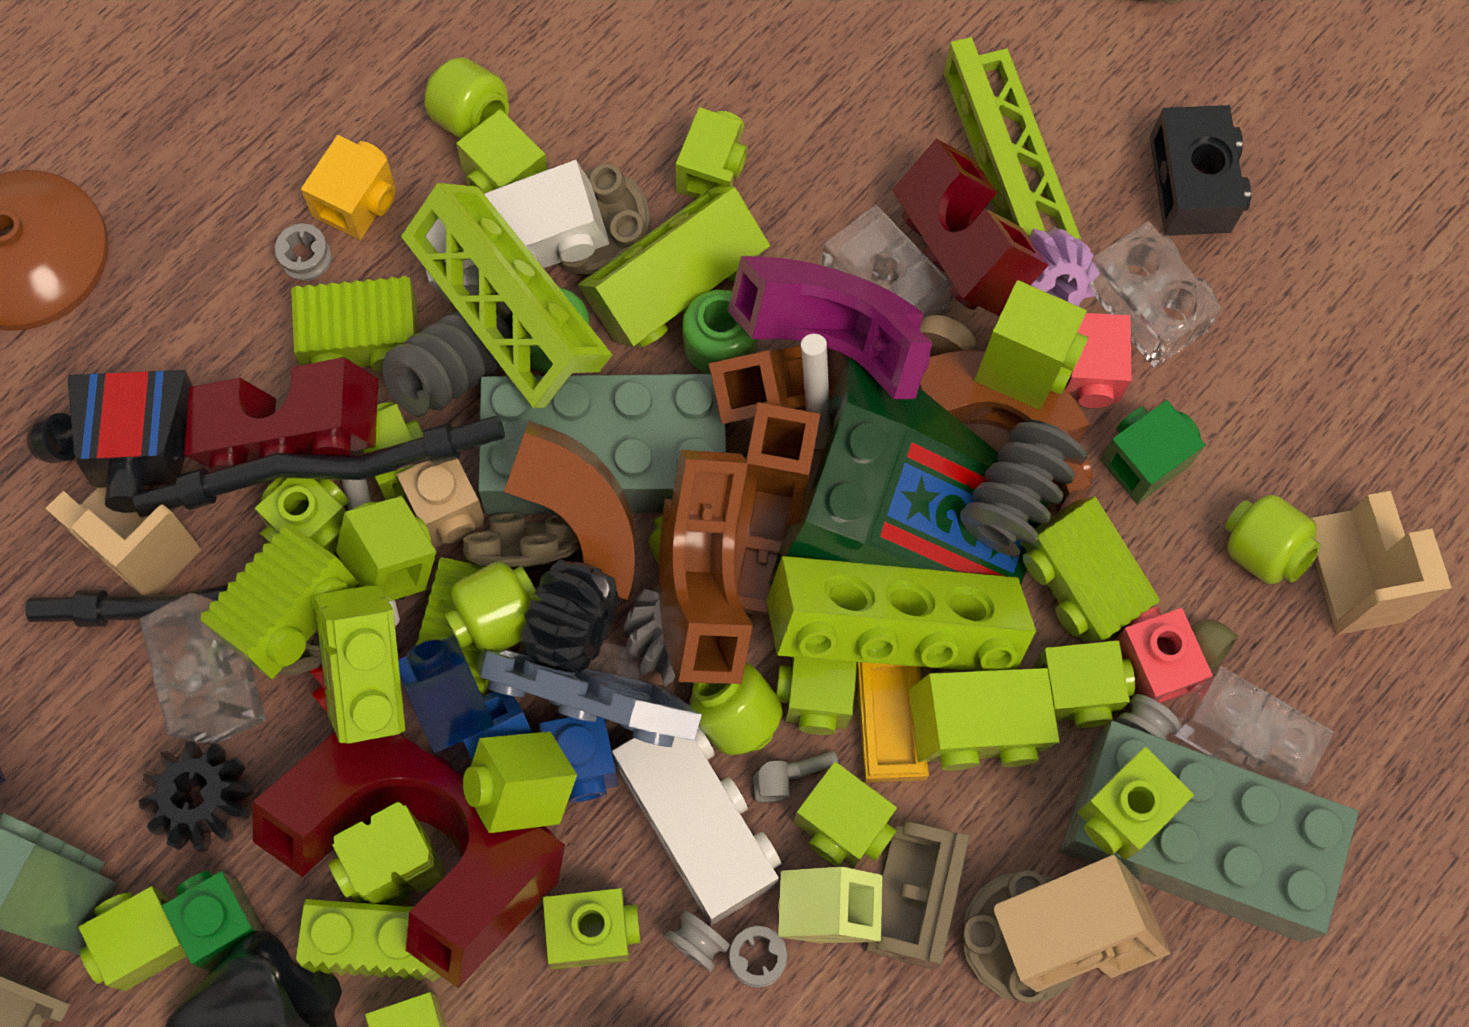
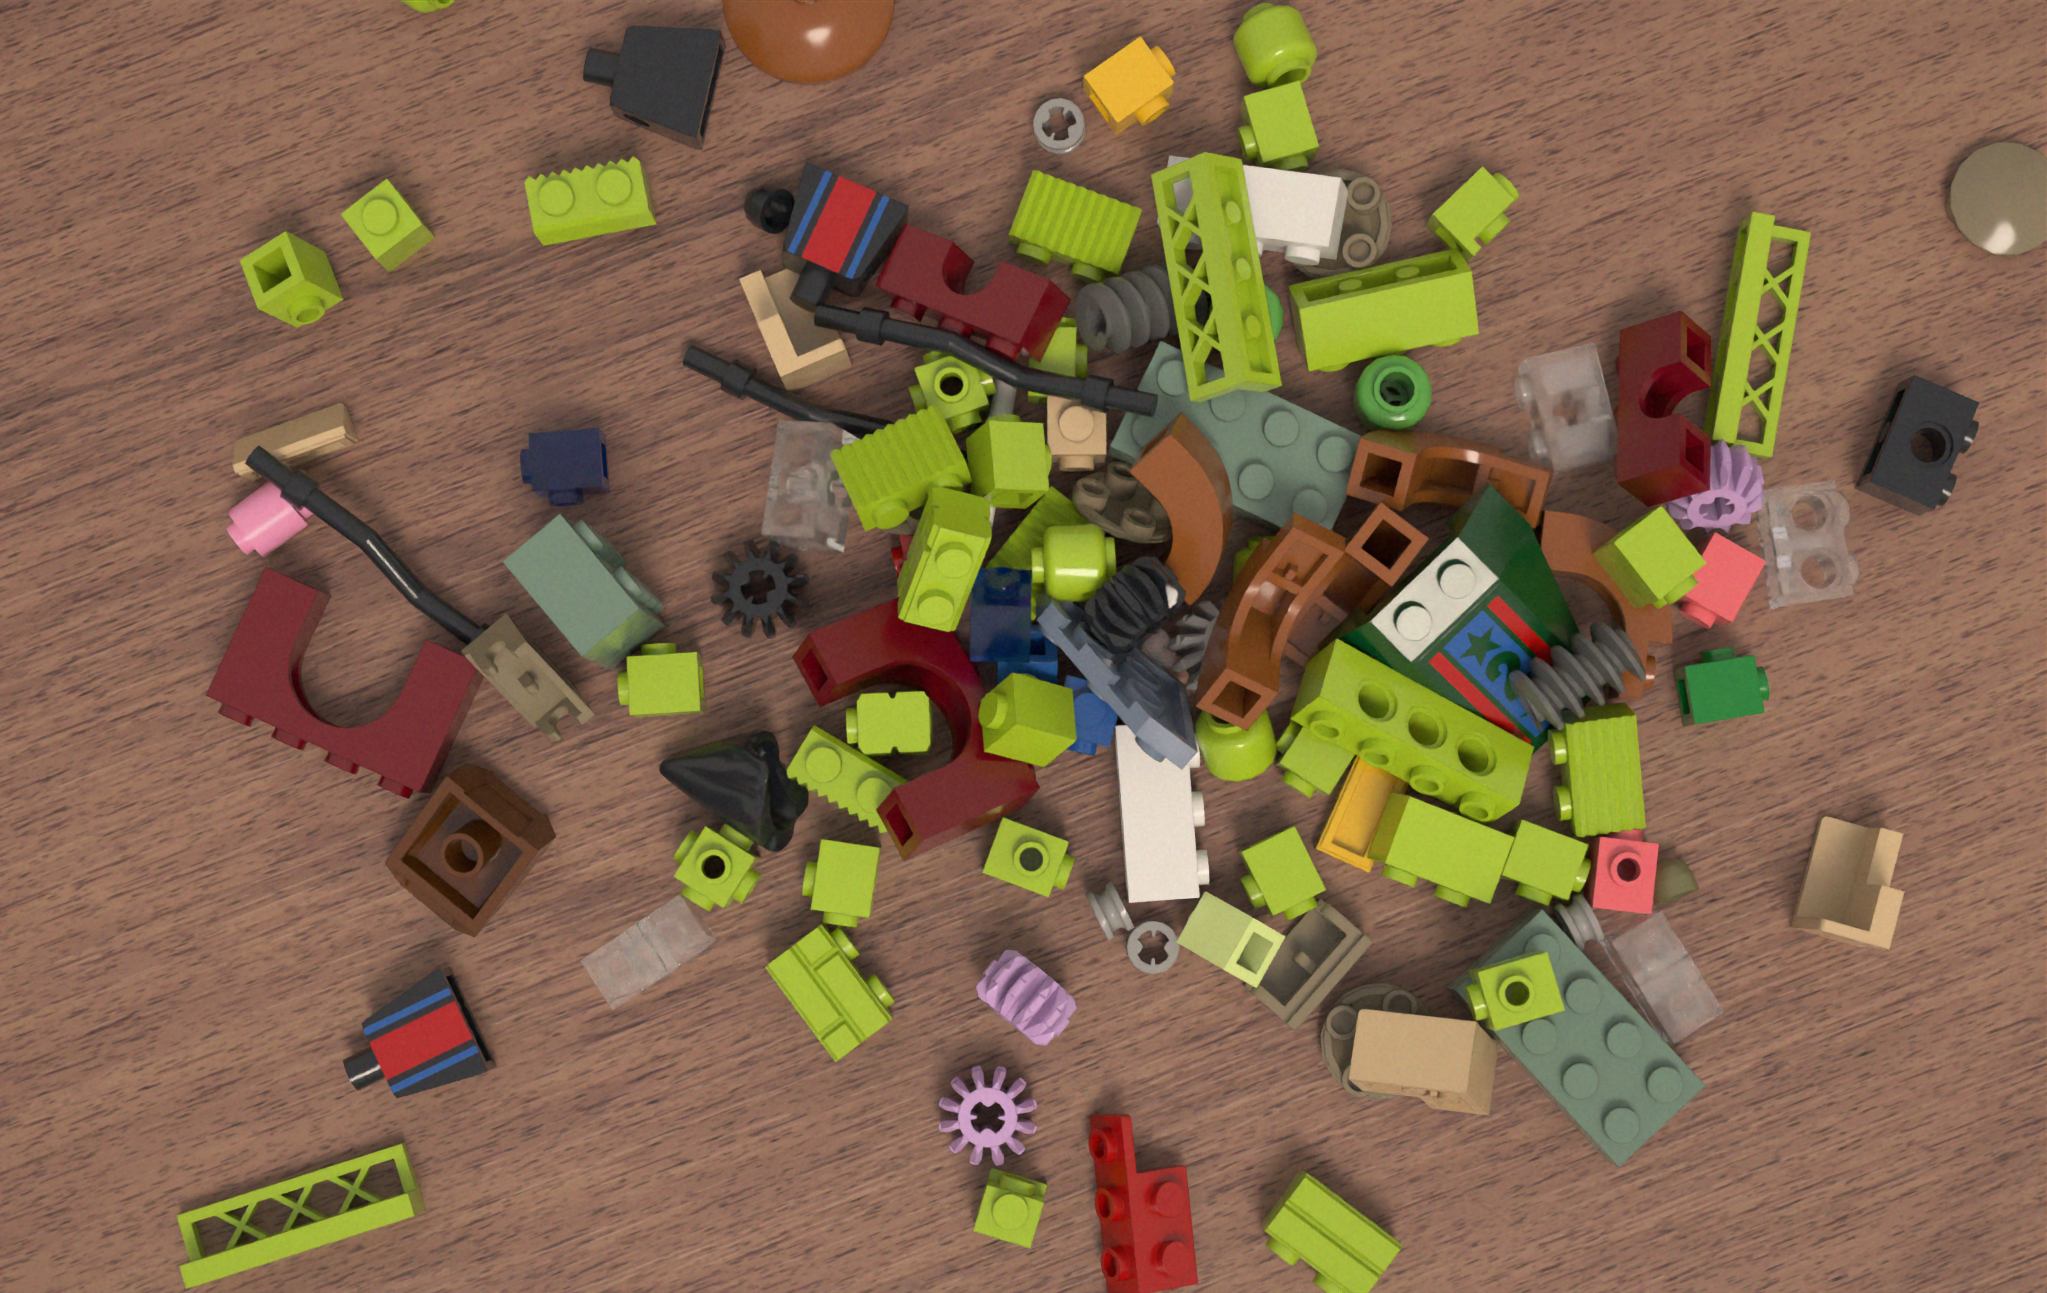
camera: 30 degrees right, 15 degrees up
(211, 917) = (733, 699): green brick -> none
(773, 778) = (1237, 811): light grey hand -> none
(817, 384) = (1443, 502): white bar -> none
(853, 315) = (1498, 440): magenta arch -> none
(946, 335) = (1591, 495): tan tile -> none
(1272, 539) = (1778, 820): lime head -> none

